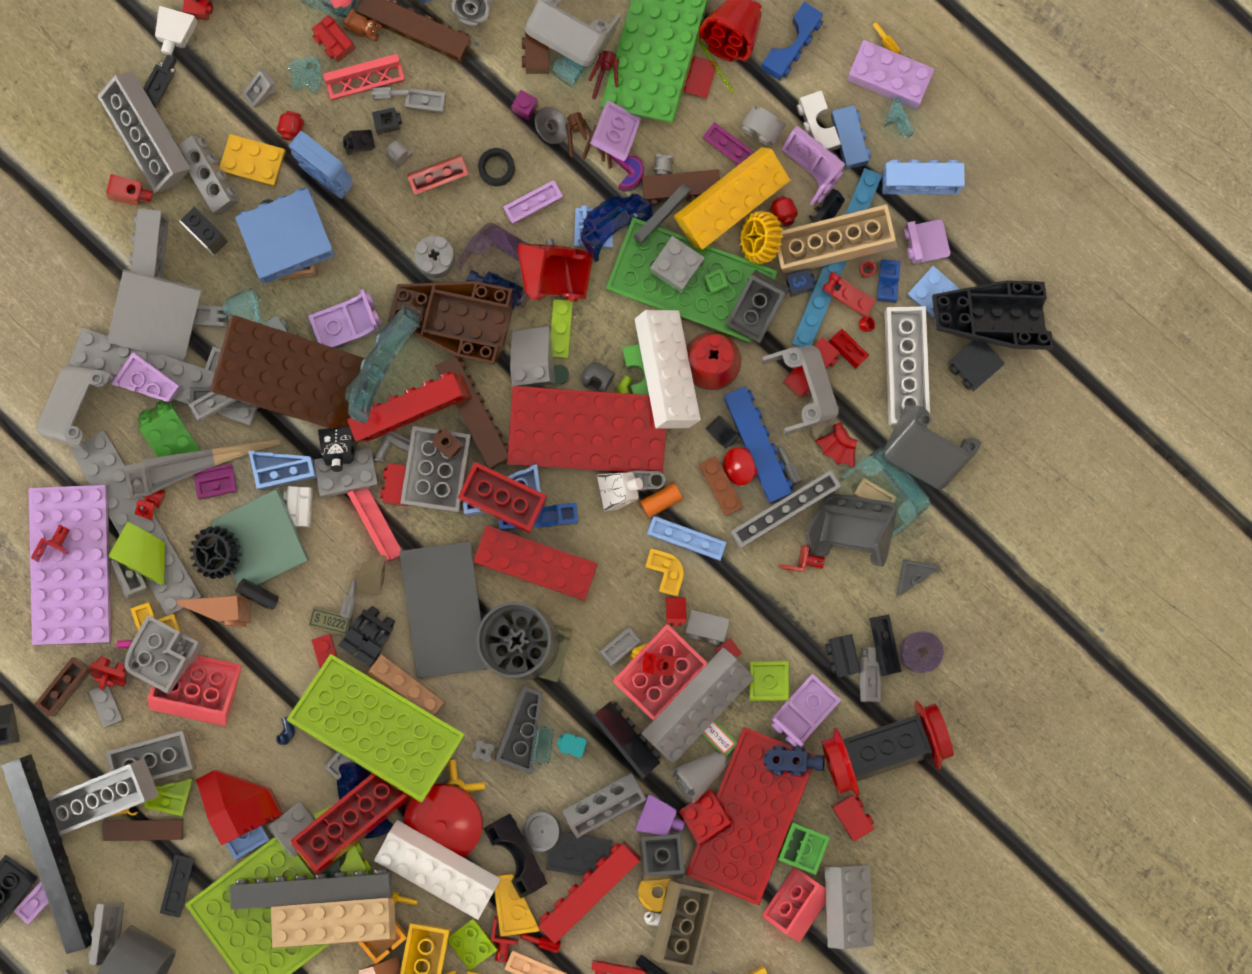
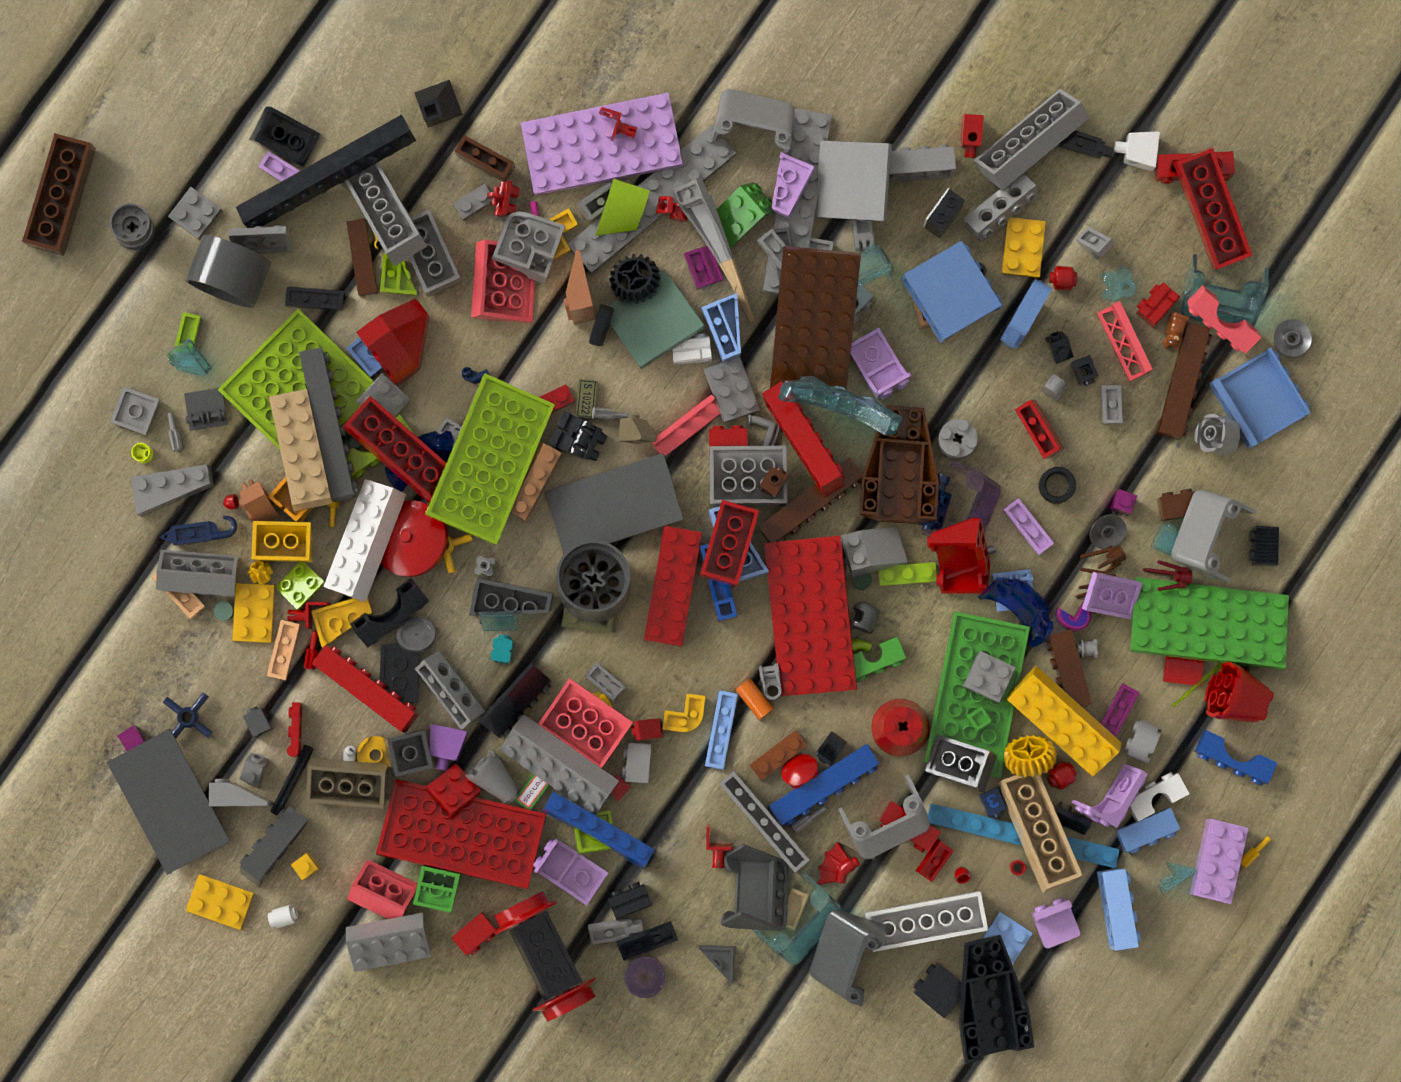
camera: 85 degrees right, 0 degrees up
(337, 447) = (754, 377): black torso -> none
(387, 92) = (1112, 366): light grey axle -> none
(618, 489) = (757, 655): white torso -> none
(659, 664) = (591, 720): red brick -> none
(662, 213) = (1037, 655): dark grey beam -> none
(667, 369) = (882, 683): white brick -> none
(767, 676) = (604, 832): none -> blue arch
(786, 761) = (519, 859): dark blue brick -> none
(849, 295) = (988, 853): red plate -> none
(888, 281) = (1009, 890): blue slope -> none

